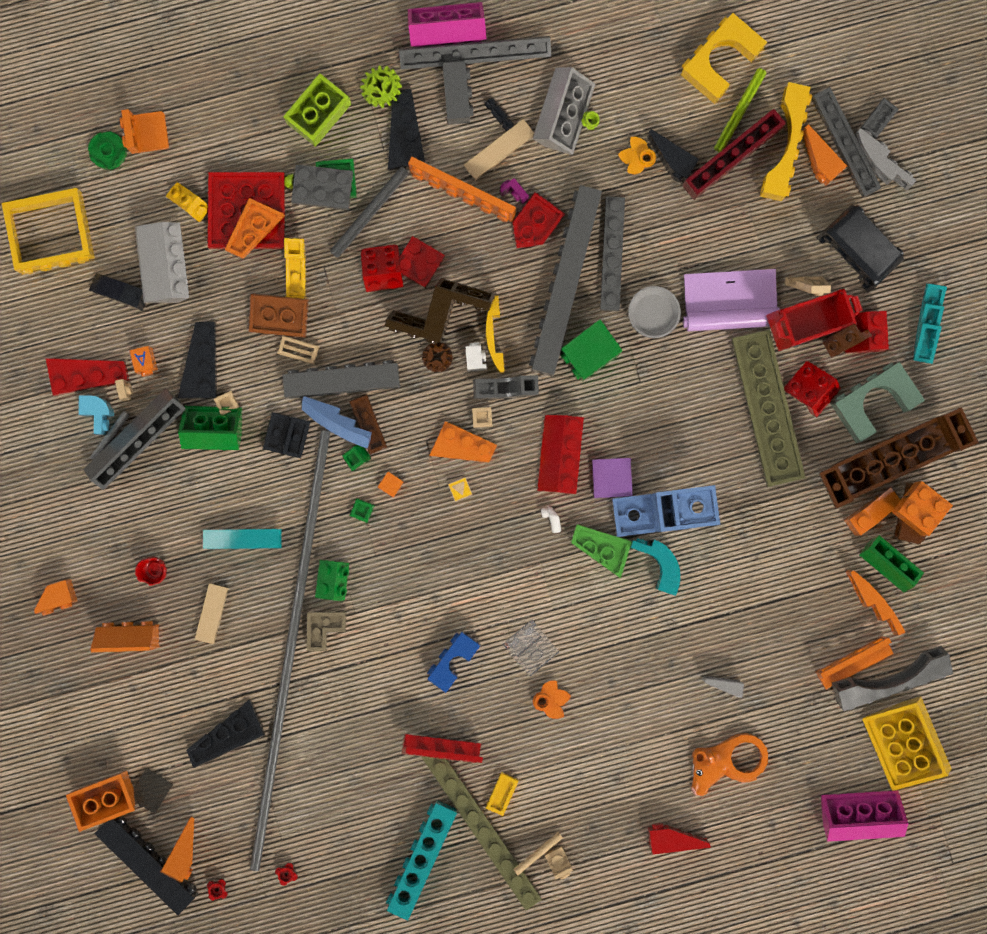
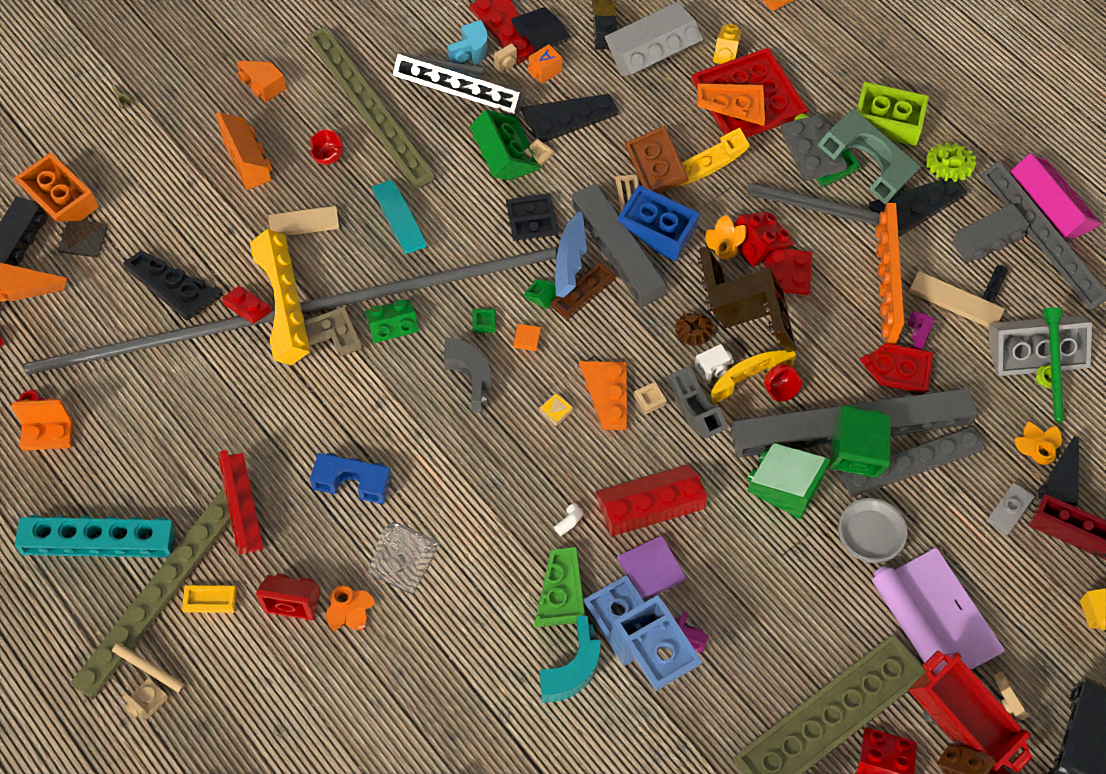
camera: 65 degrees right, 25 degrees down
(20, 718) = (121, 97): none -> olive hand
(106, 348) = (541, 28): none -> black slope
(121, 520) = (371, 108): none -> olive plate
(272, 685) = (246, 304): none -> red plate
(314, 663) = (288, 335): none -> yellow arch
(316, 871) = (44, 424): none -> orange bracket
(338, 341) = (659, 222): none -> blue slope
(367, 132) = (857, 132): none -> sand green arch
(371, 294) = (725, 234): none -> light orange plate
(397, 535) = (469, 361): none -> dark grey arch
(513, 316) = (782, 382): none -> red hair
(528, 739) = (289, 596): none -> red slope
(557, 94) = (1053, 317): none -> green piece
(592, 287) = (861, 442): none -> green slope
(675, 474) = (694, 635): none -> magenta bracket
(676, 205) = (1010, 508): none -> light grey plate

